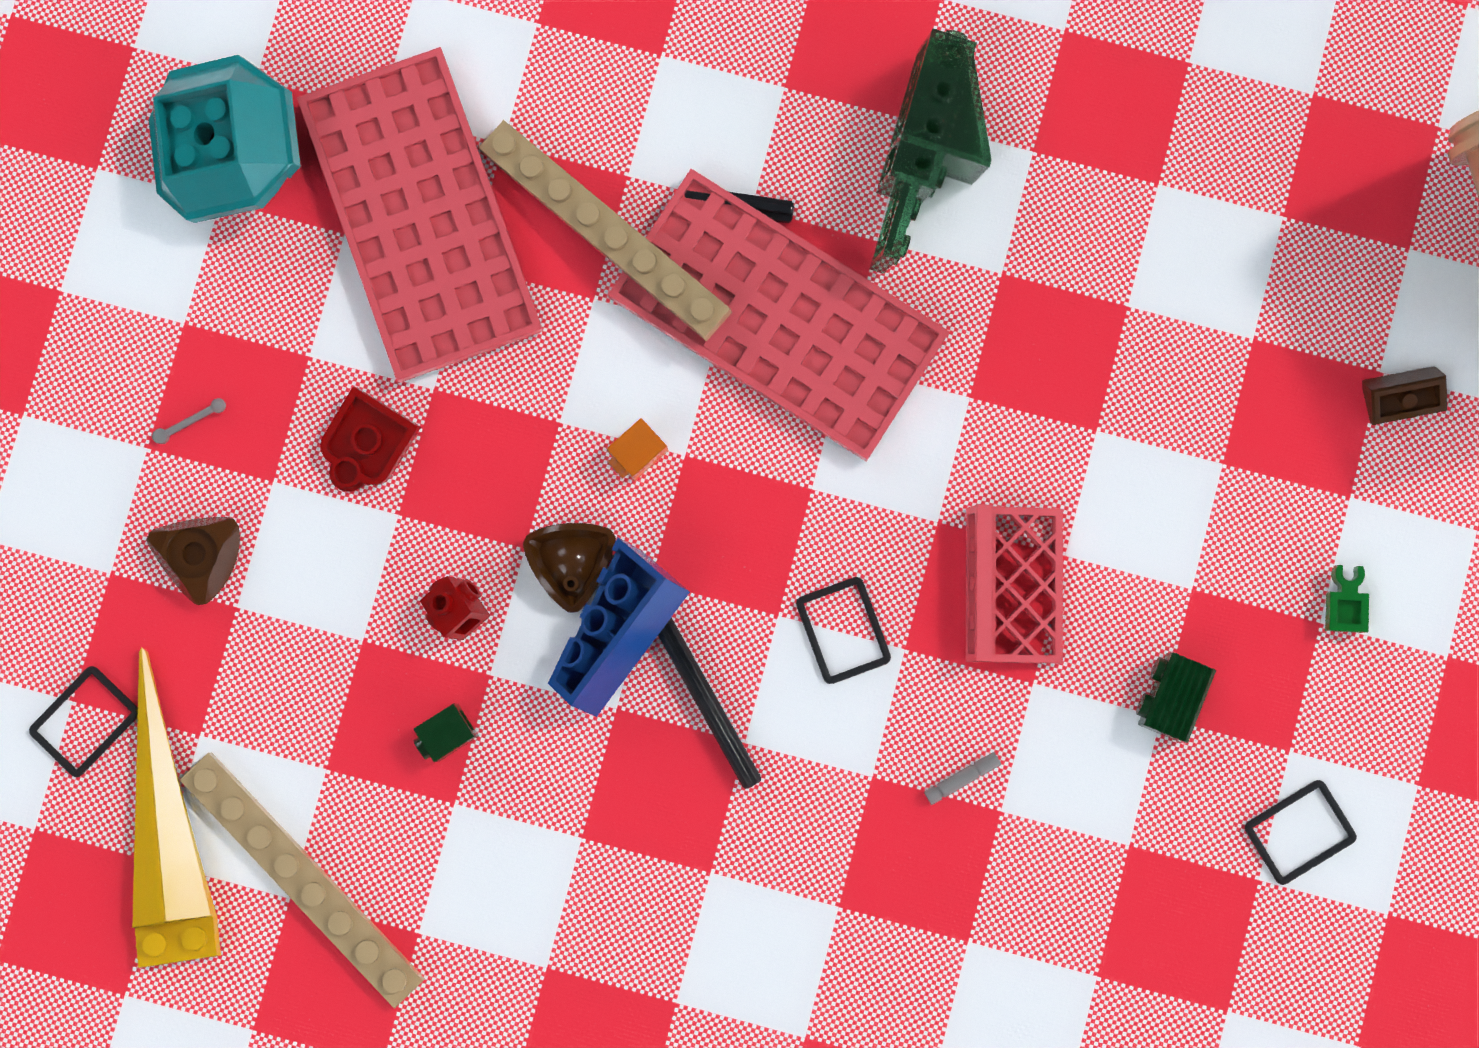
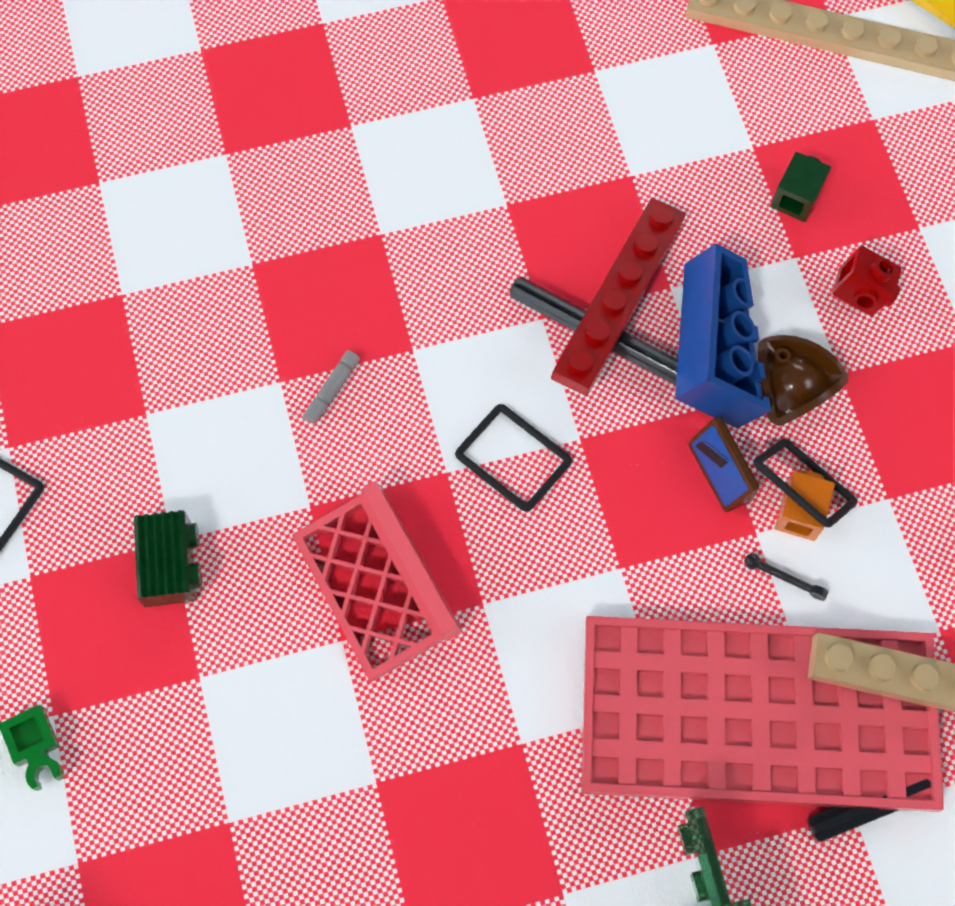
camera: 150 degrees right, 15 degrees down
(649, 462) = (758, 463): none -> black piece
(671, 718) = (618, 297): none -> red plate
(680, 521) = (724, 465): none -> slope
(704, 432) = (753, 561): none -> black hinge

